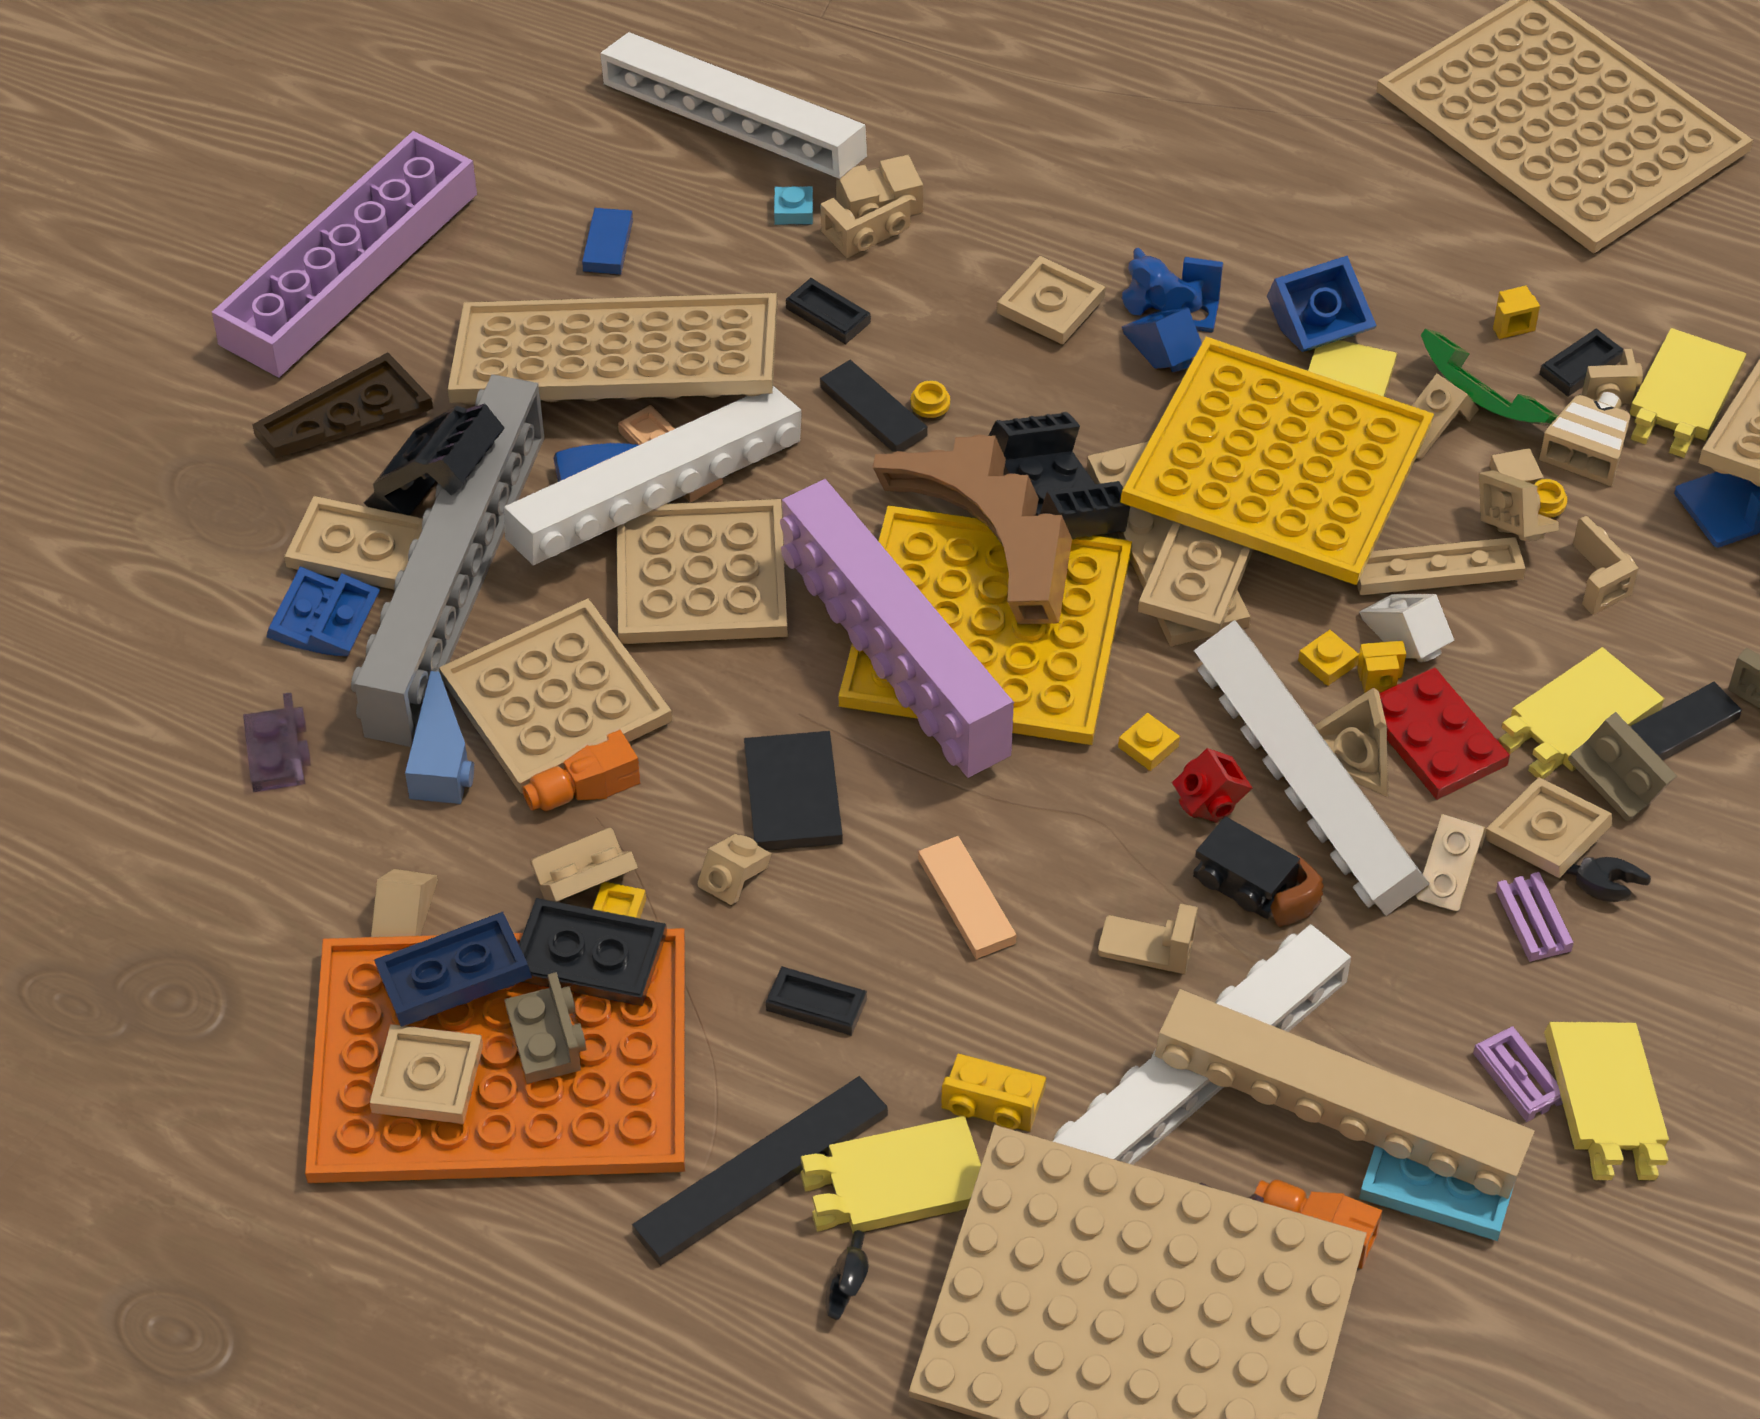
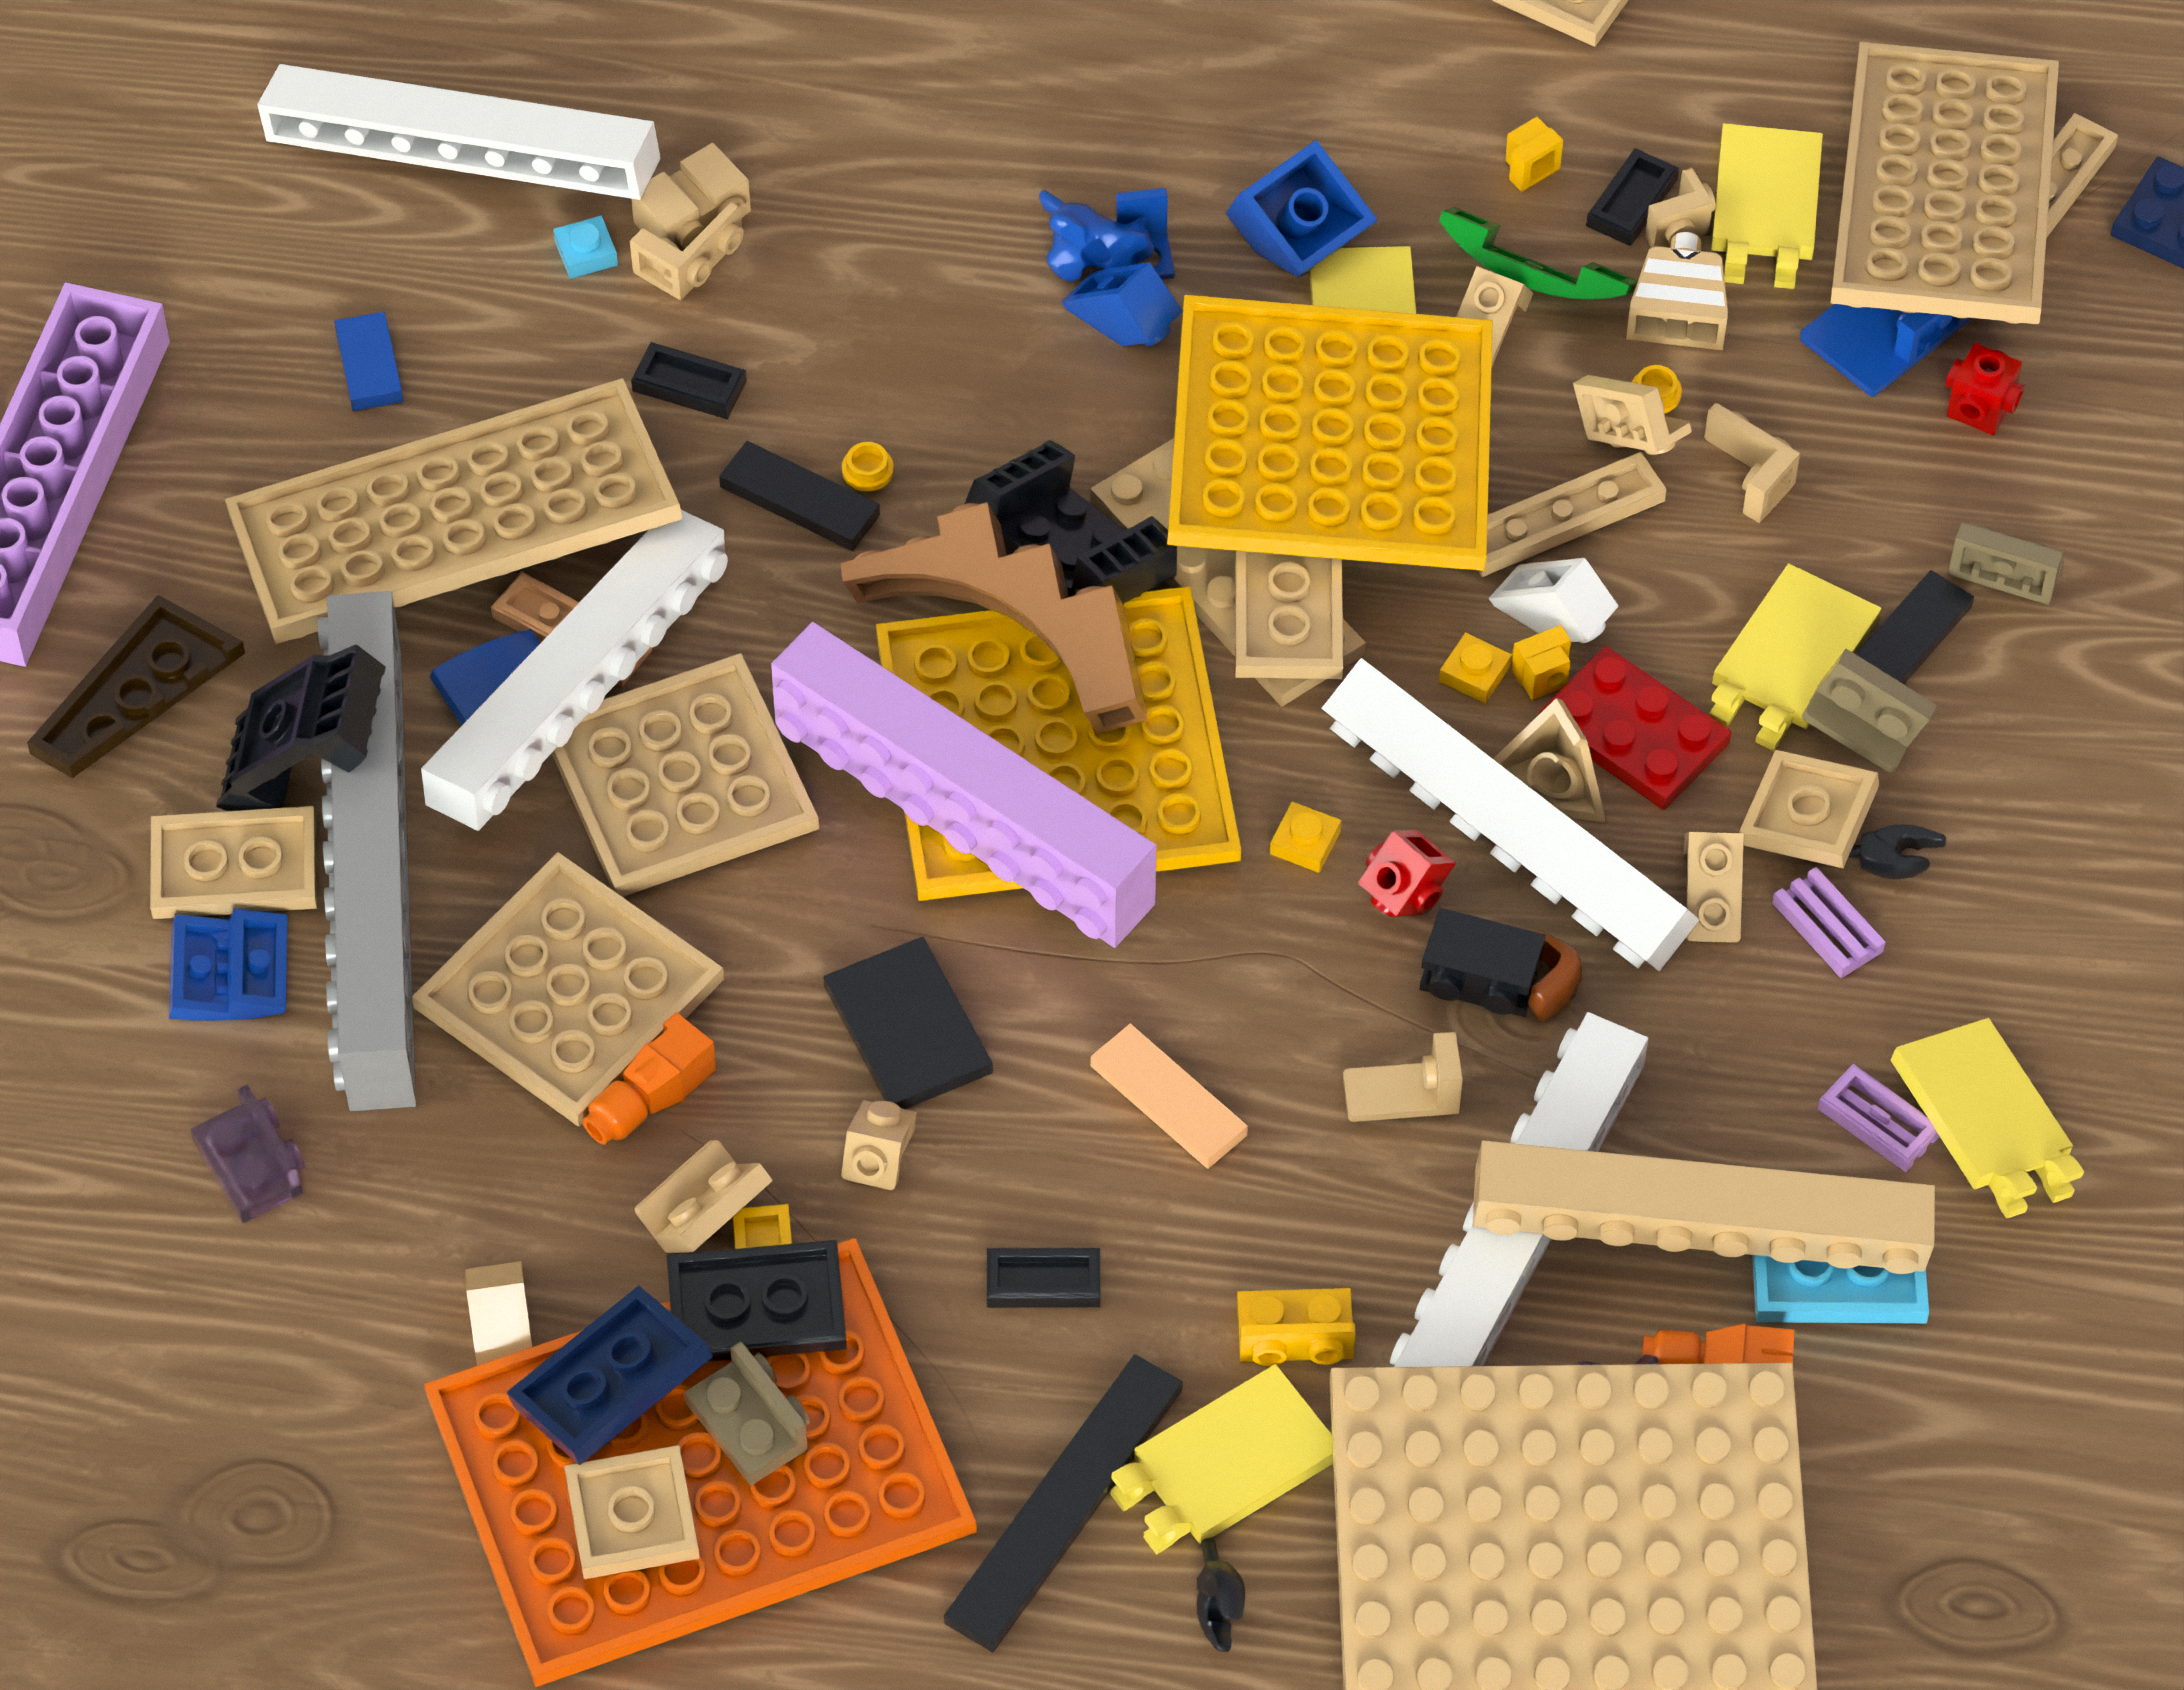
camera: 20 degrees left, 5 degrees up
(438, 754) = (460, 1100): medium blue slope -> none
(1051, 300) = (963, 290): tan plate -> none
(1517, 464) = (1607, 358): tan tile -> none

